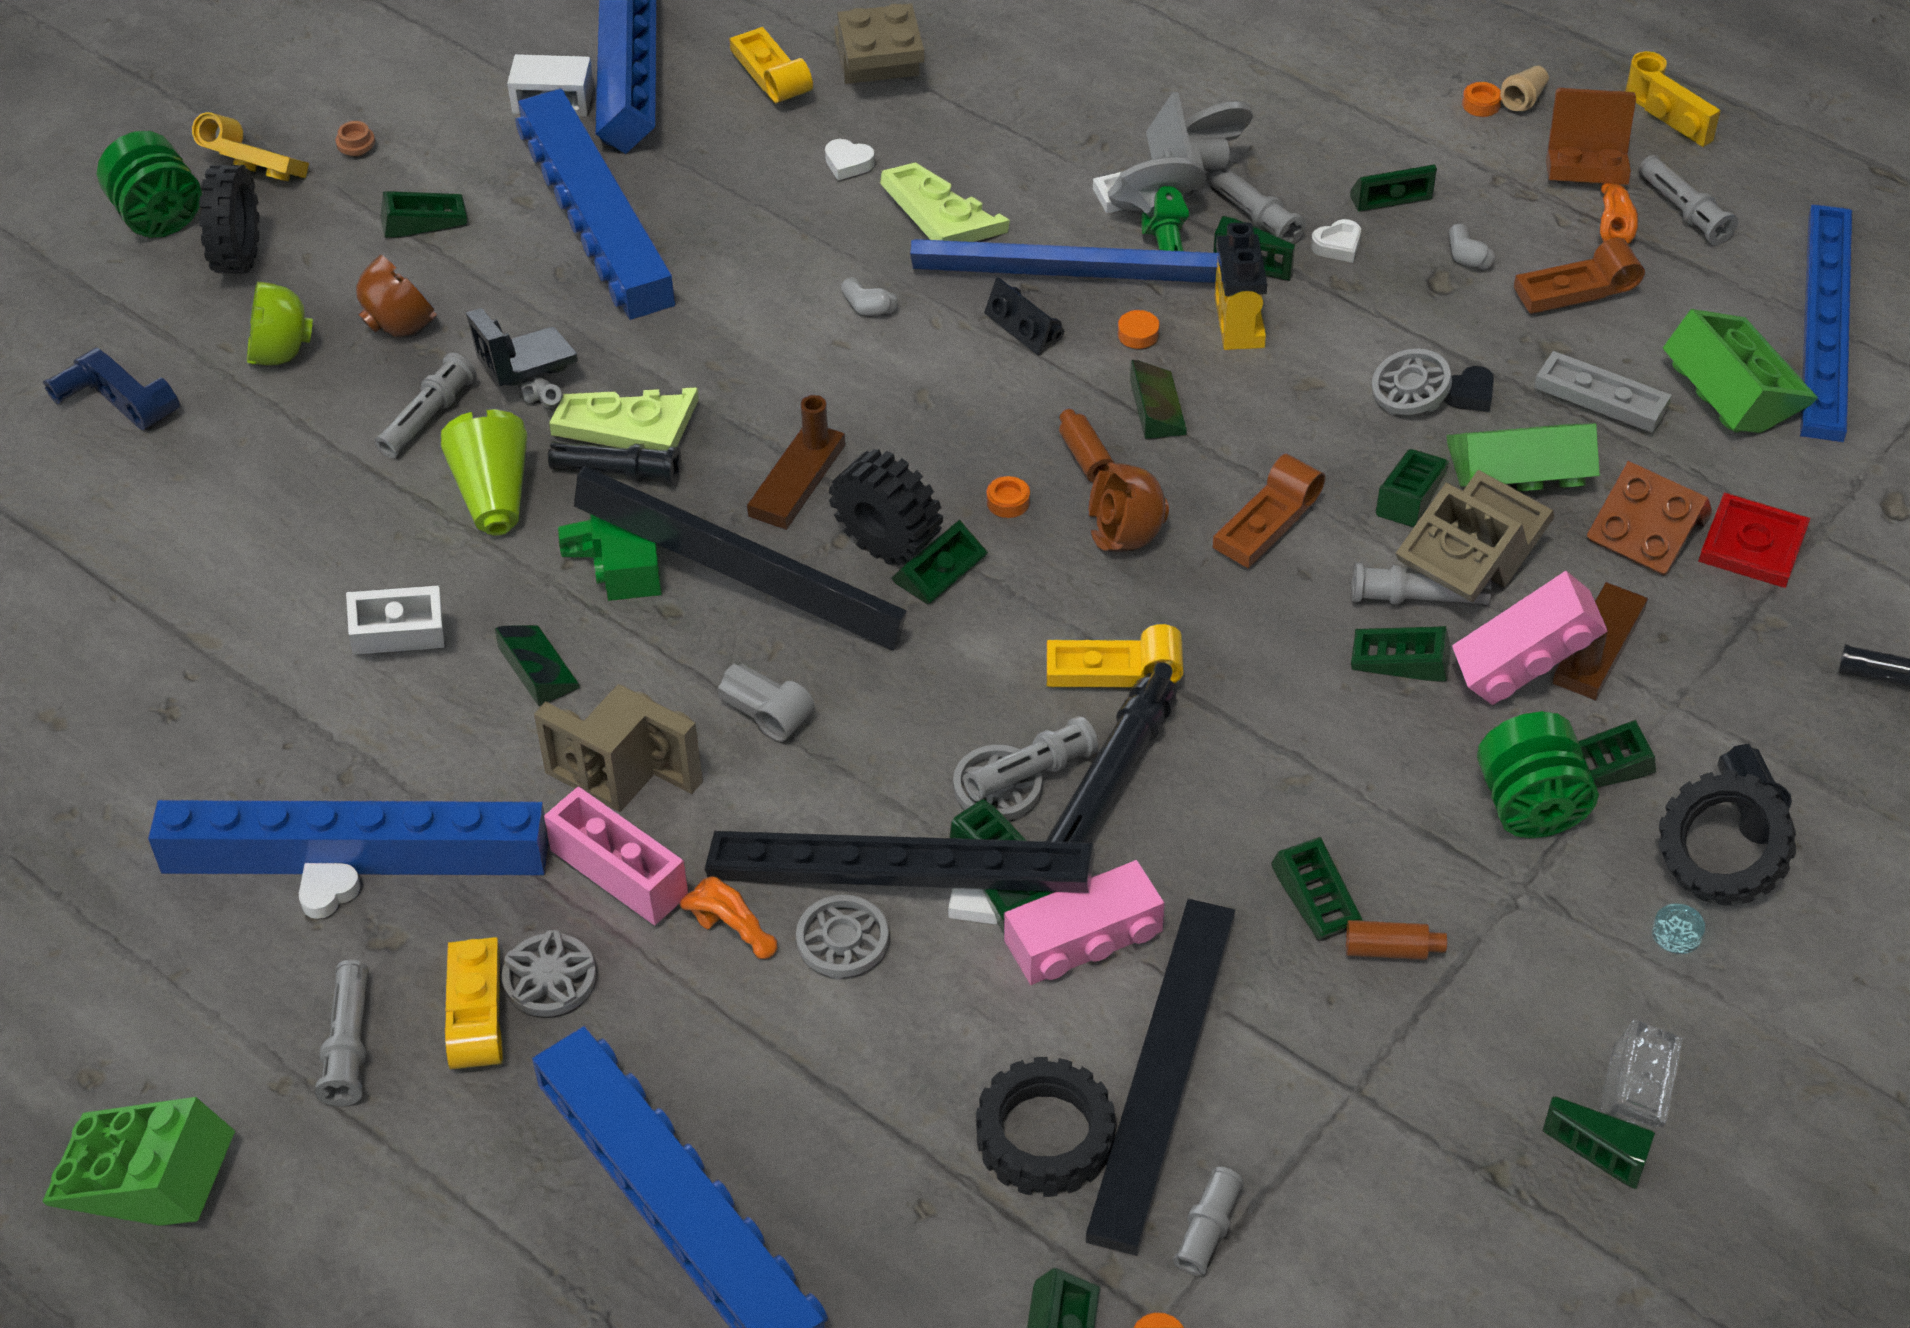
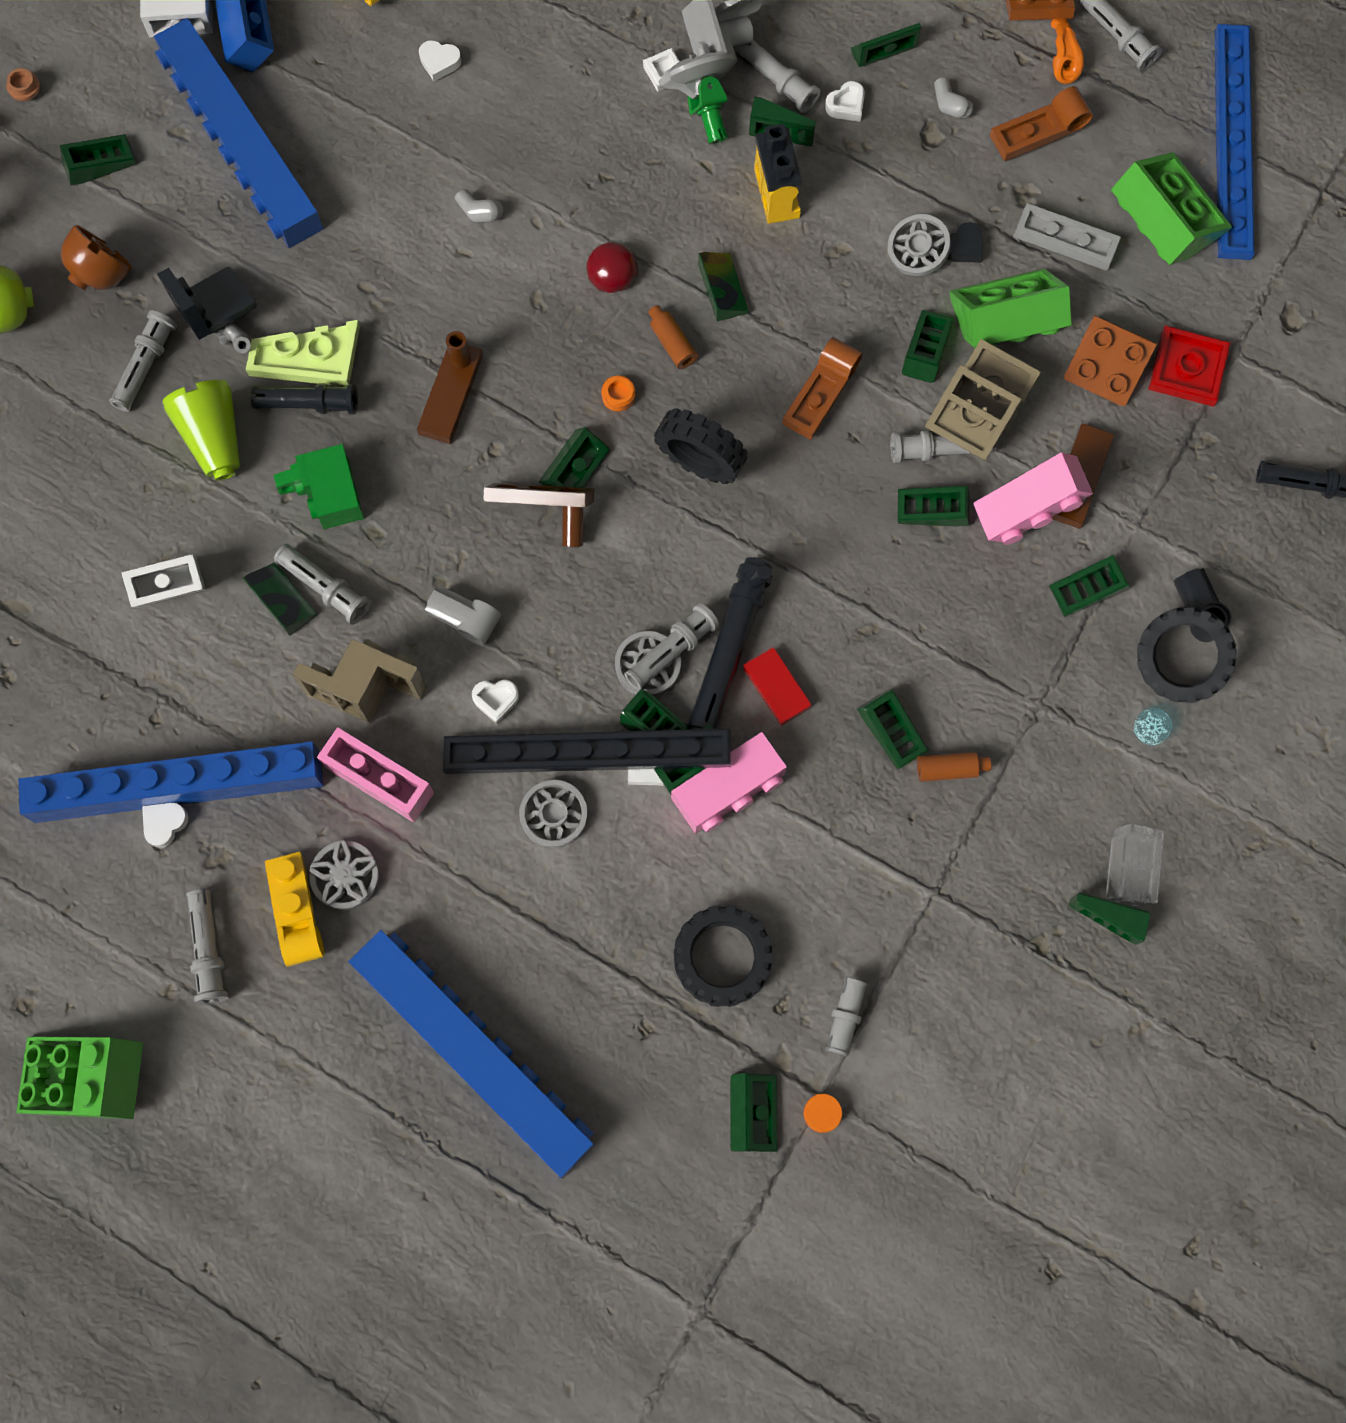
camera: 10 degrees left, 25 degrees up
(605, 659) = (333, 594): none -> light grey pin
(717, 901) = (454, 801): orange piece -> none
(739, 558) = (419, 492): black tile -> none
(790, 800) = (495, 699): none -> white tile
(885, 507) = (528, 430): black tyre -> none
(926, 585) = (570, 498): none -> piece
(939, 210) = (523, 109): yellowish green wing -> none
(1021, 369) = (611, 267): none -> dark red hair
(1022, 317) = (600, 211): black hinge -> none
(1064, 260) = (631, 153): blue tile -> none
(1114, 661) = (722, 545): yellow plate -> none
(1119, 524) = (700, 446): none -> black tyre
(1127, 507) = (715, 395): dark orange cylinder -> none
(1138, 329) = (698, 213): orange tile -> none
(1160, 1079) = (799, 899): black tile -> none
(1166, 826) = (777, 686): none -> red tile
(1537, 775) = (1045, 616): green wheel -> none

